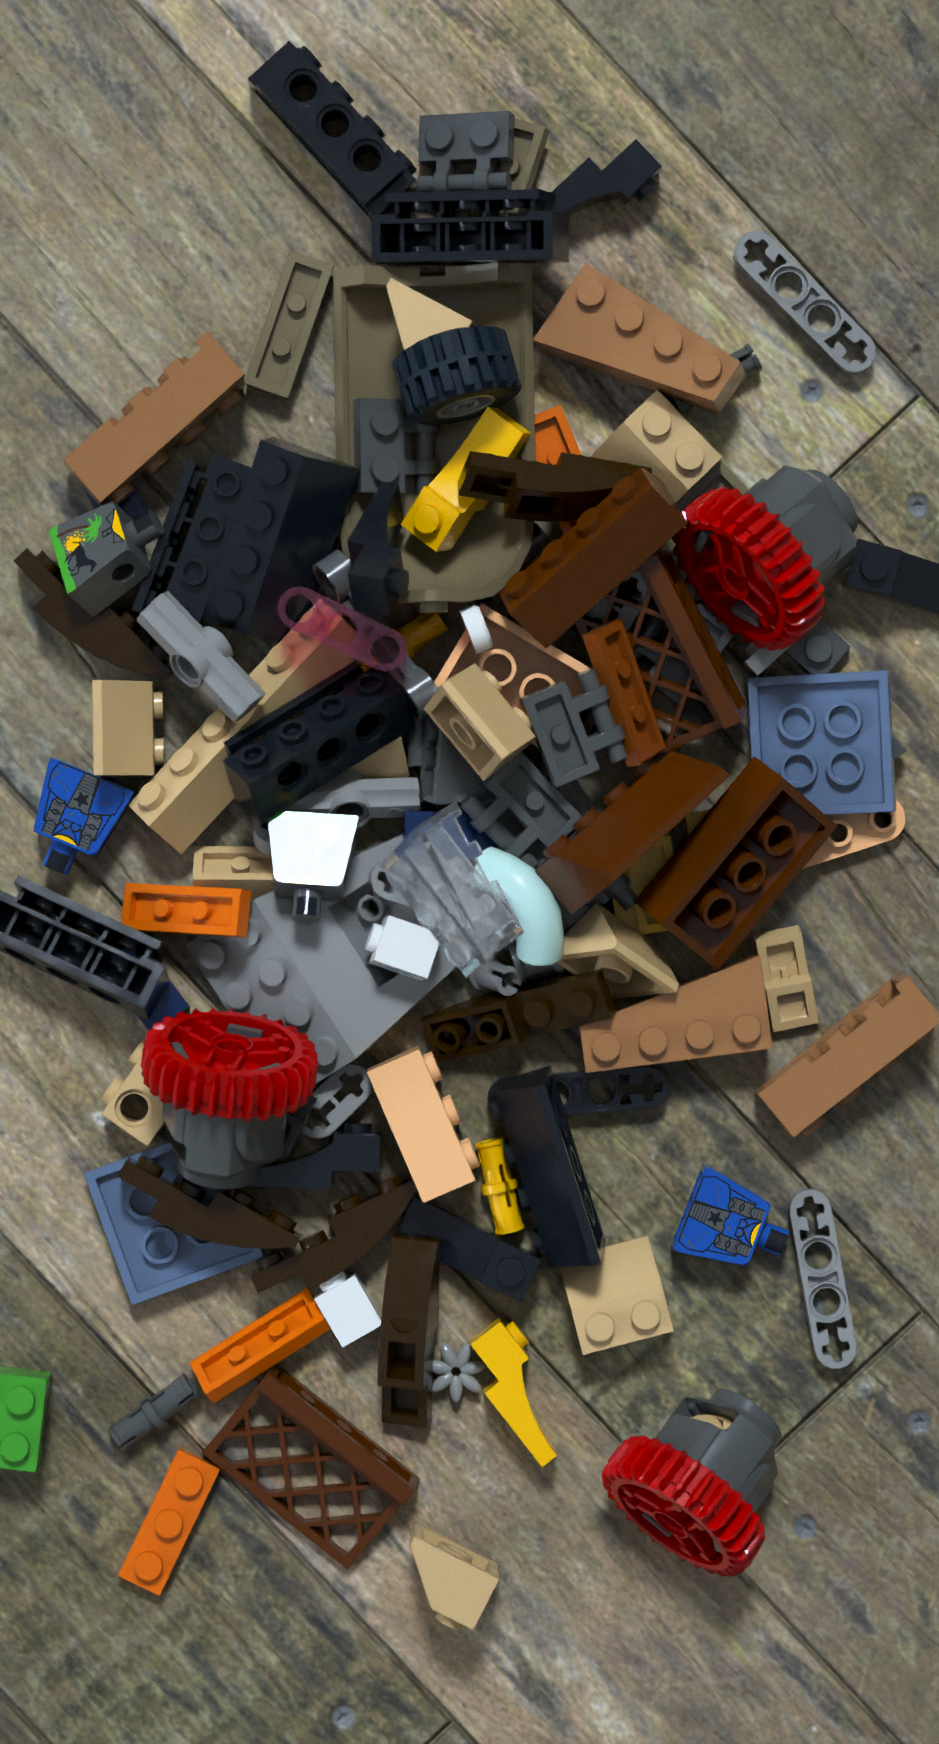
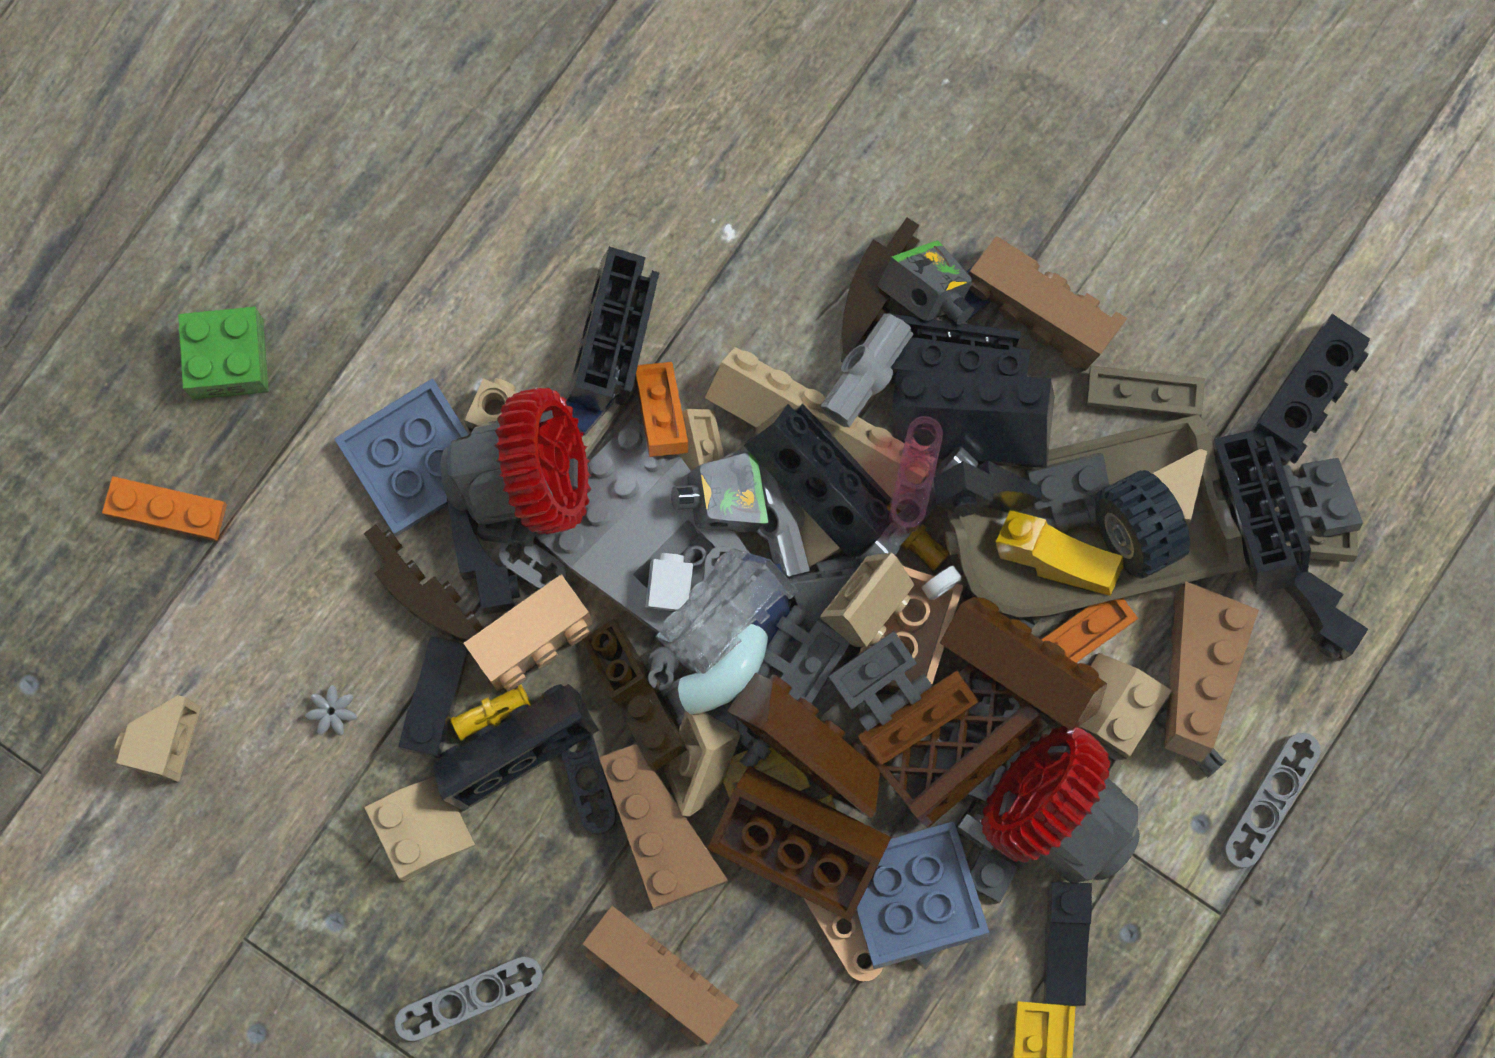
camera: 70 degrees right, 10 degrees down
(77, 813) = (719, 311): torso -> none
(126, 728) = (795, 330): tan slope -> none
(154, 1412) = (250, 476): dark grey pin -> none
(225, 1221) = (417, 492): dark brown slope -> none
(259, 1345) = (321, 548): orange plate -> none
(342, 1441) = (254, 632): reddish brown fence -> none
(347, 1307) = (366, 610): white brick -> none
(407, 1330) = (355, 660): dark brown slope -> none
(504, 1353) = (353, 745): yellow slope -> none
(542, 490) = (1067, 609): dark brown slope -> none
(700, 1481) = (278, 929): red piece -> none
(726, 1221) = (500, 905): torso -> none
(786, 978) = (713, 911): tan slope -> none

